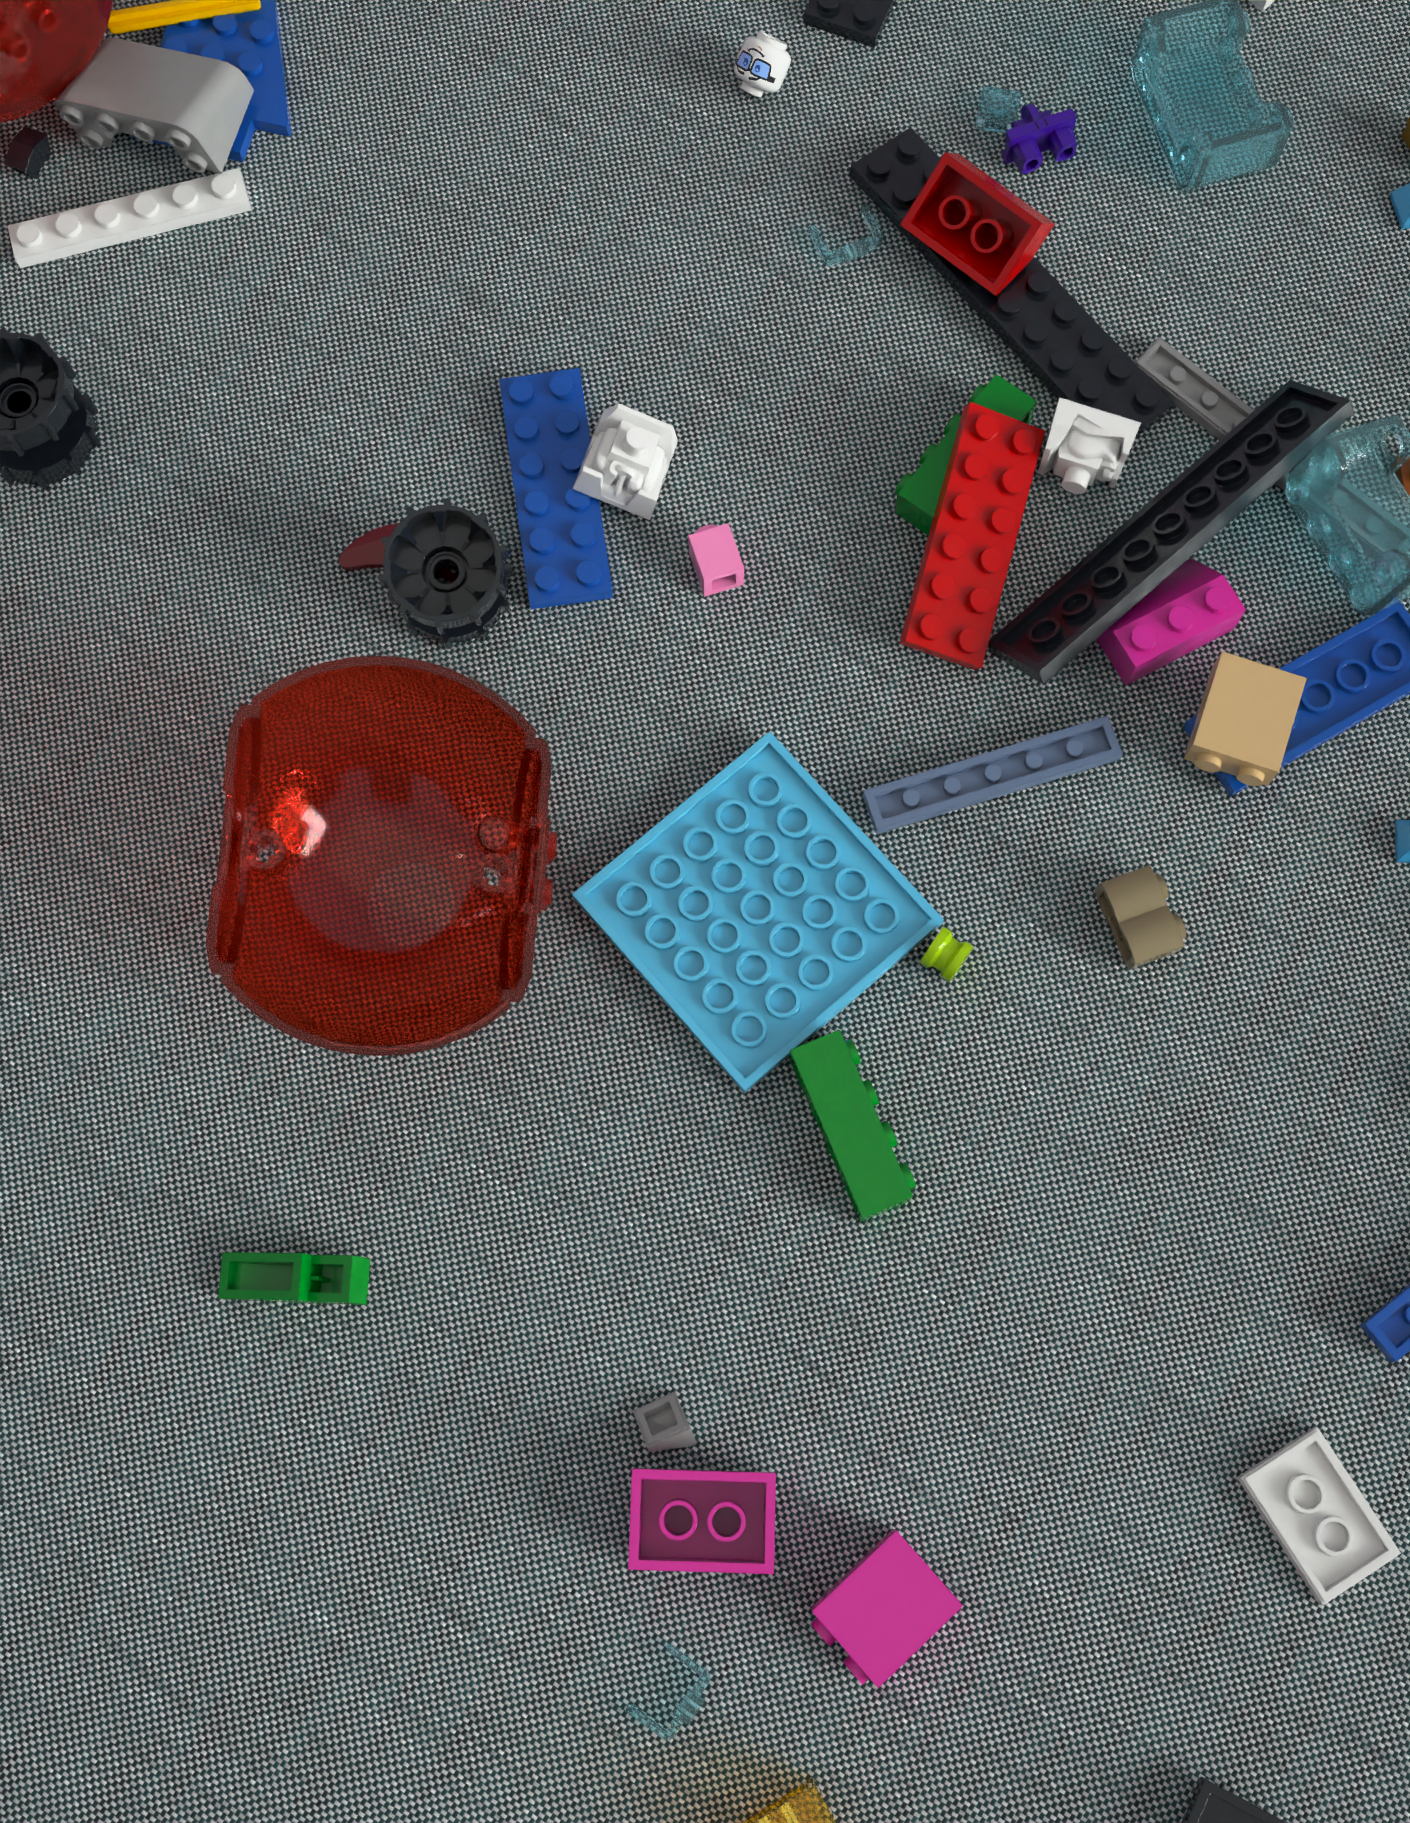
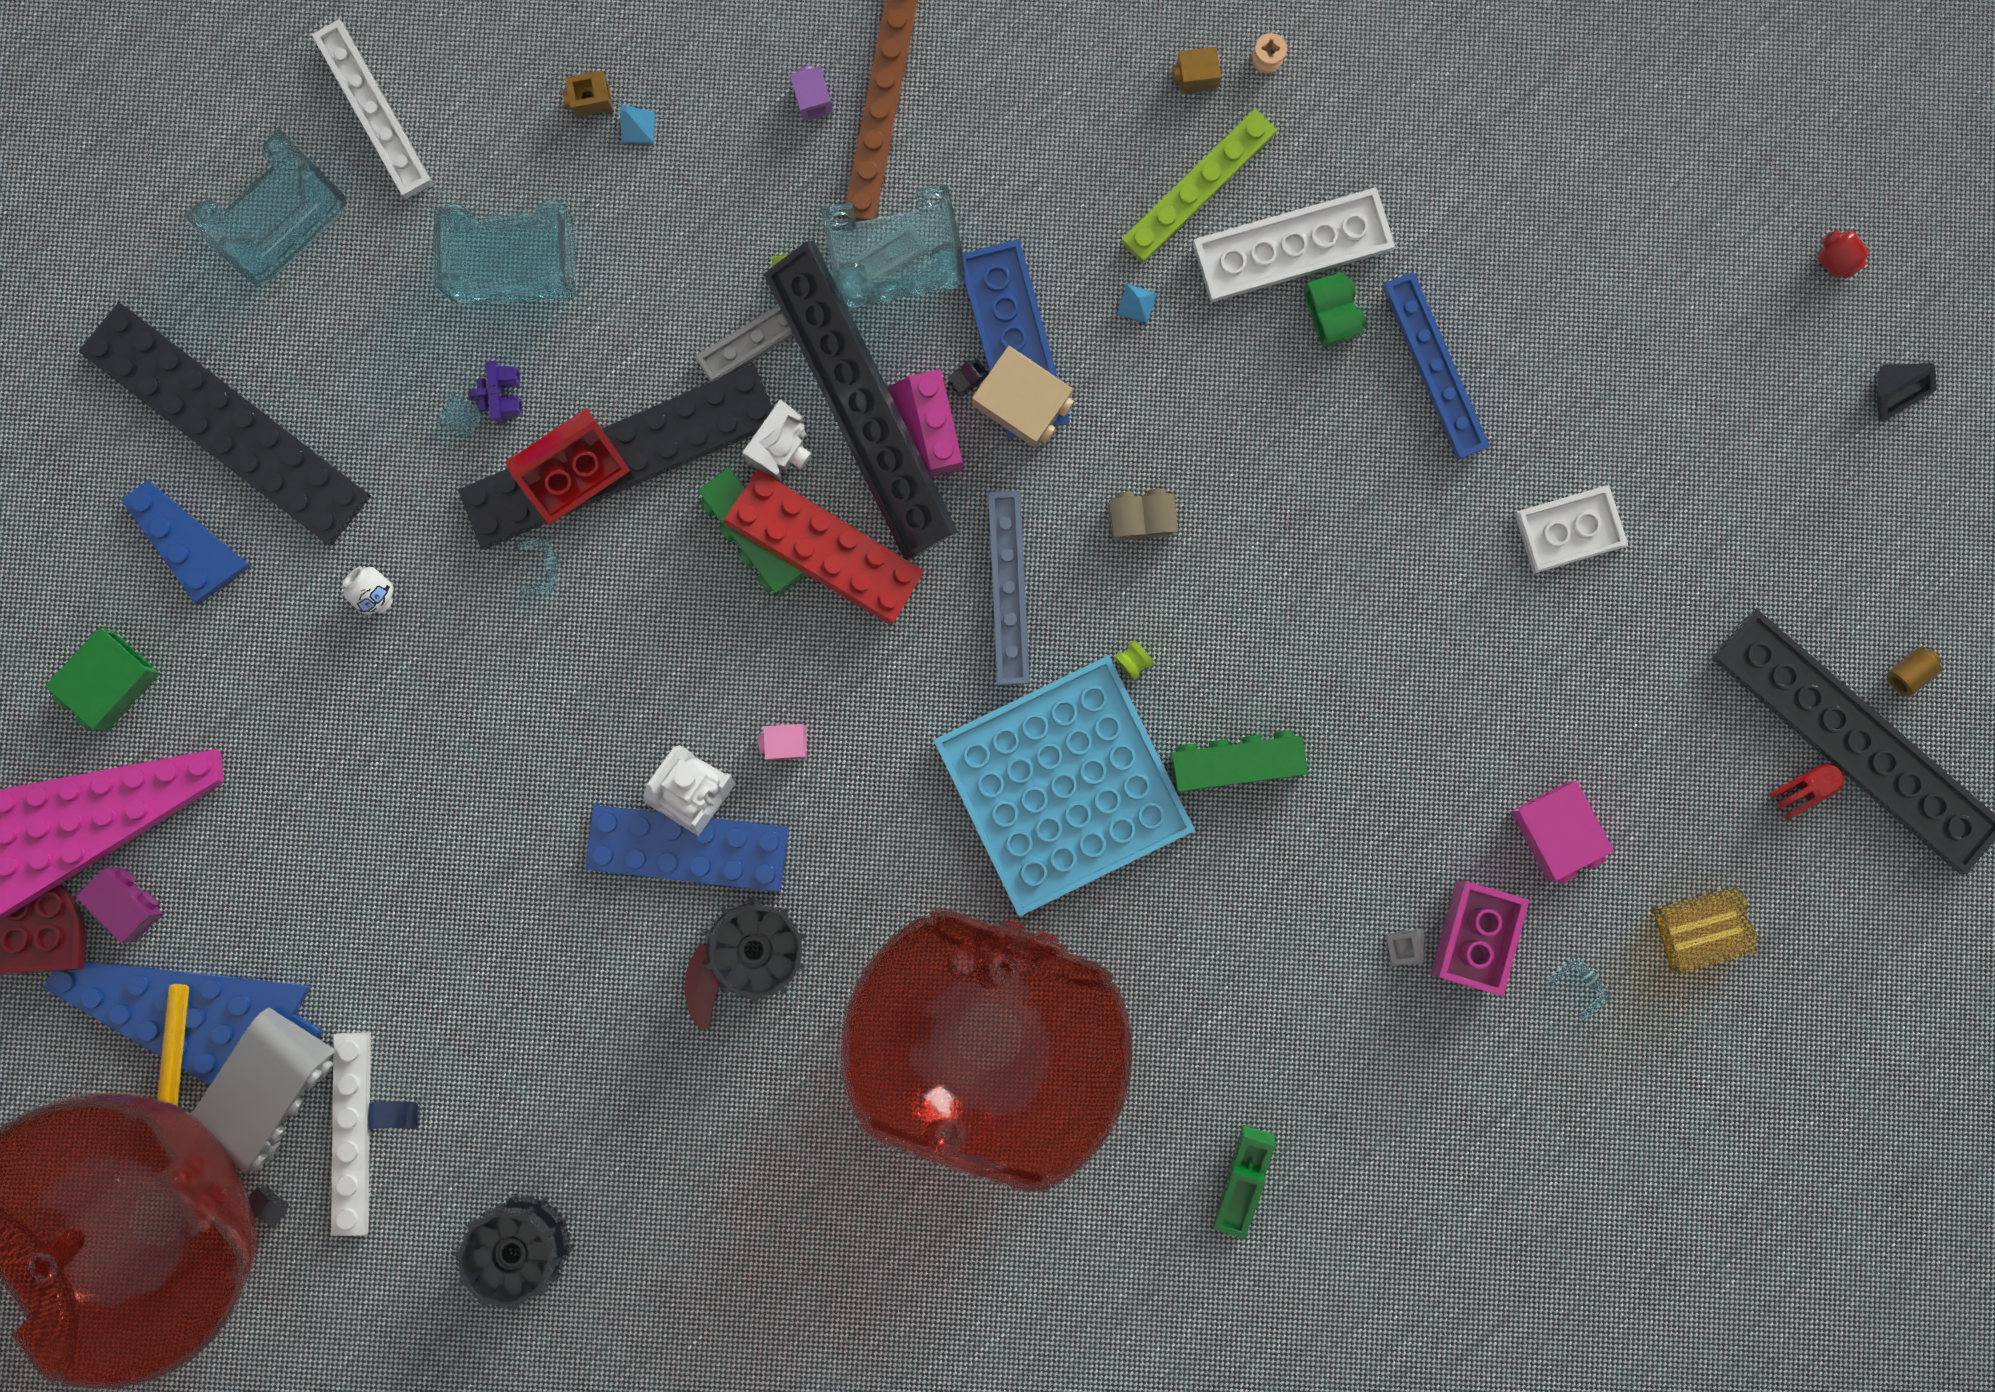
camera: 80 degrees left, 10 degrees up
(160, 253) = (393, 1115): none -> dark blue sticker
(1247, 648) = (967, 377): none -> black piece

